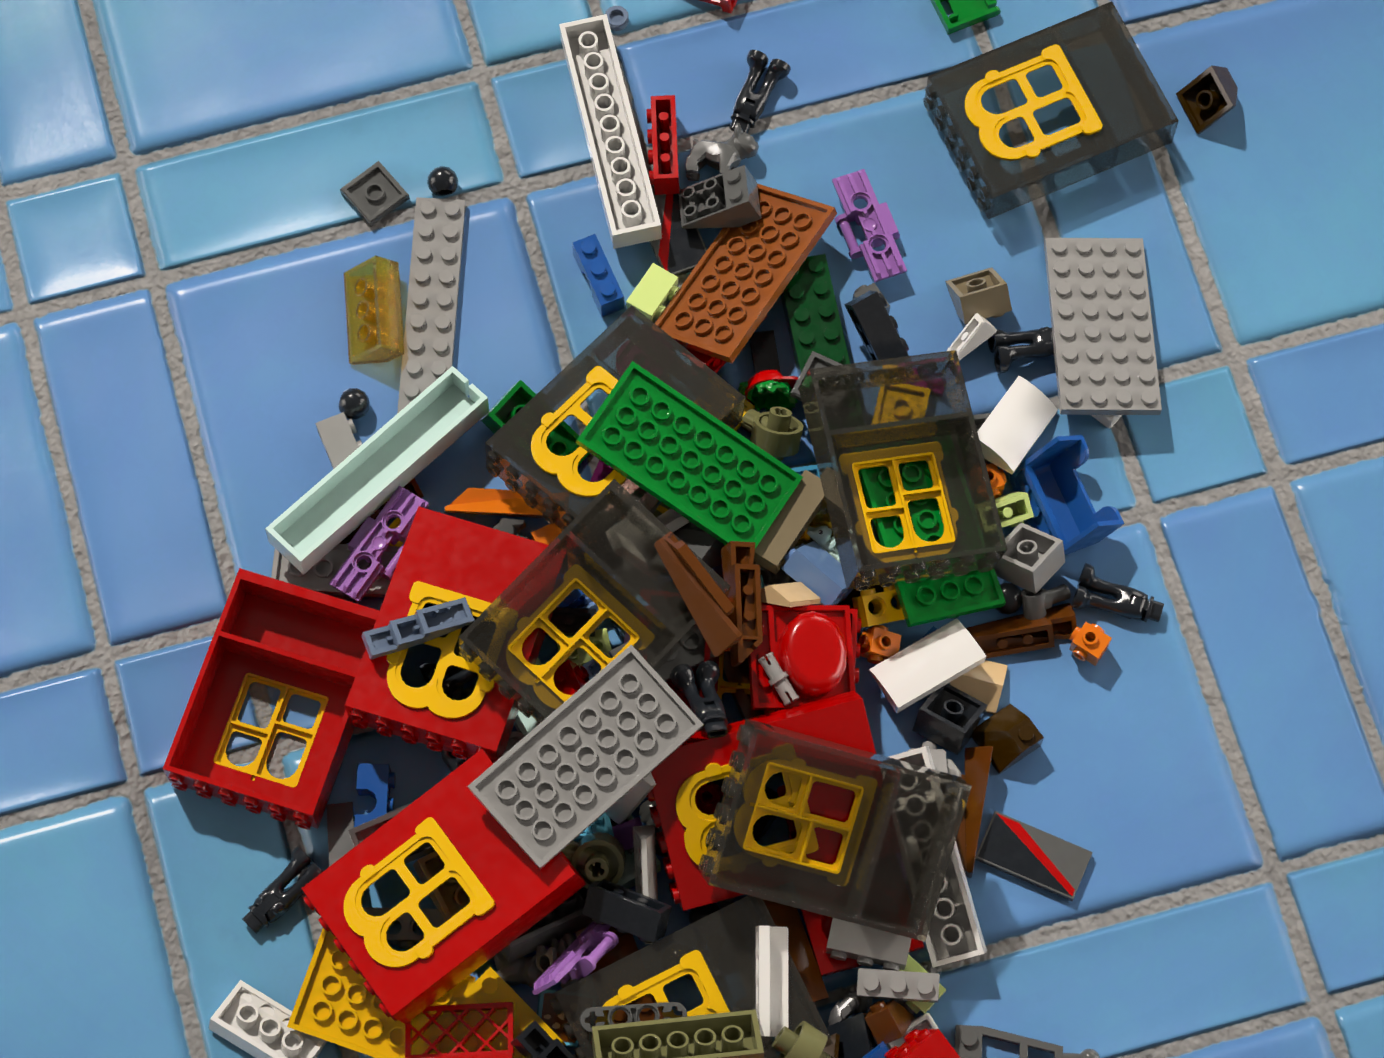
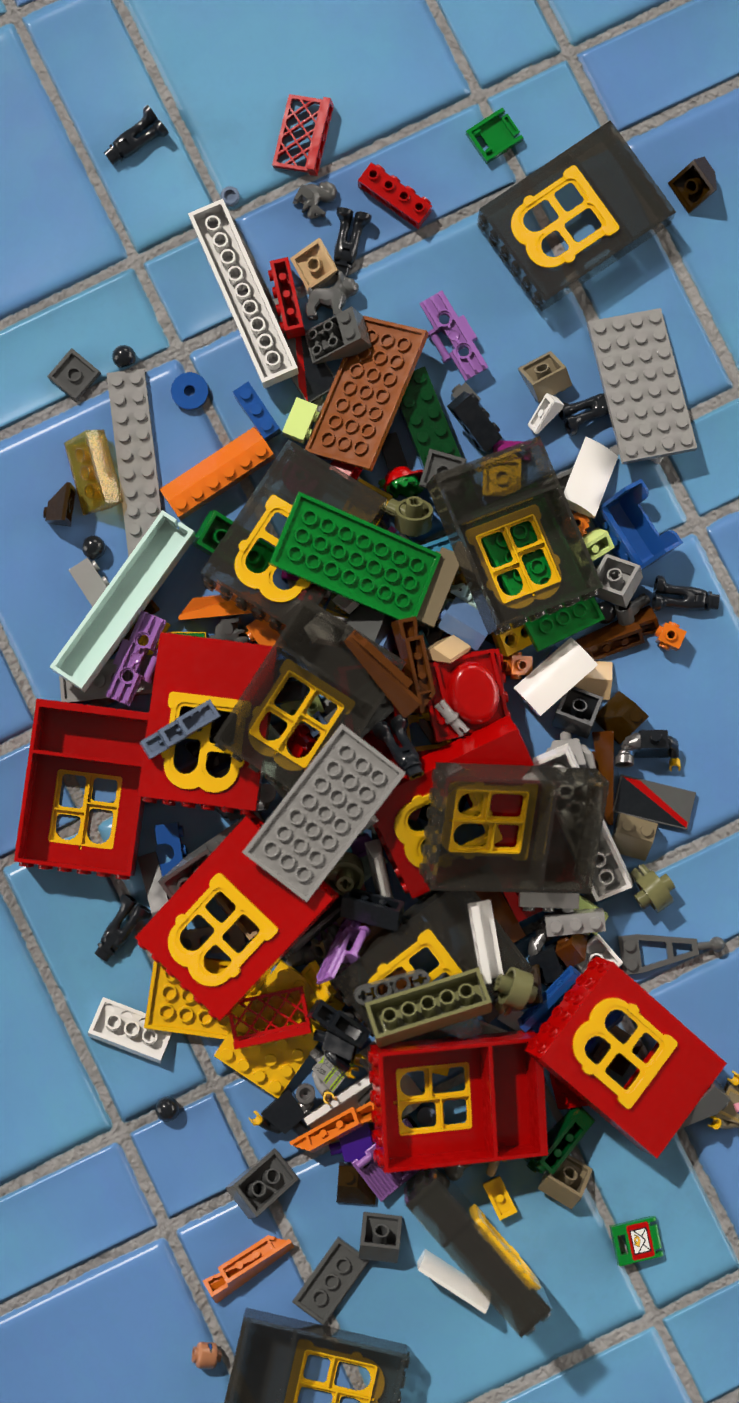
camera: 10 degrees left, 15 degrees up
(323, 345) = (61, 506): none -> dark brown slope
(517, 224) = (189, 380): none -> blue tile
(532, 342) = (217, 473): none -> orange slope
(537, 1006) = (323, 991): none -> yellow plate
(707, 113) = (314, 264): none -> tan slope
(720, 32) = (312, 194): none -> dark grey animal
(825, 49) = (395, 195): none -> red brick
(999, 893) = (634, 836): none -> dark tan slope
(1013, 966) = (653, 890): none -> olive piece
(1037, 776) = (648, 745): none -> black torso

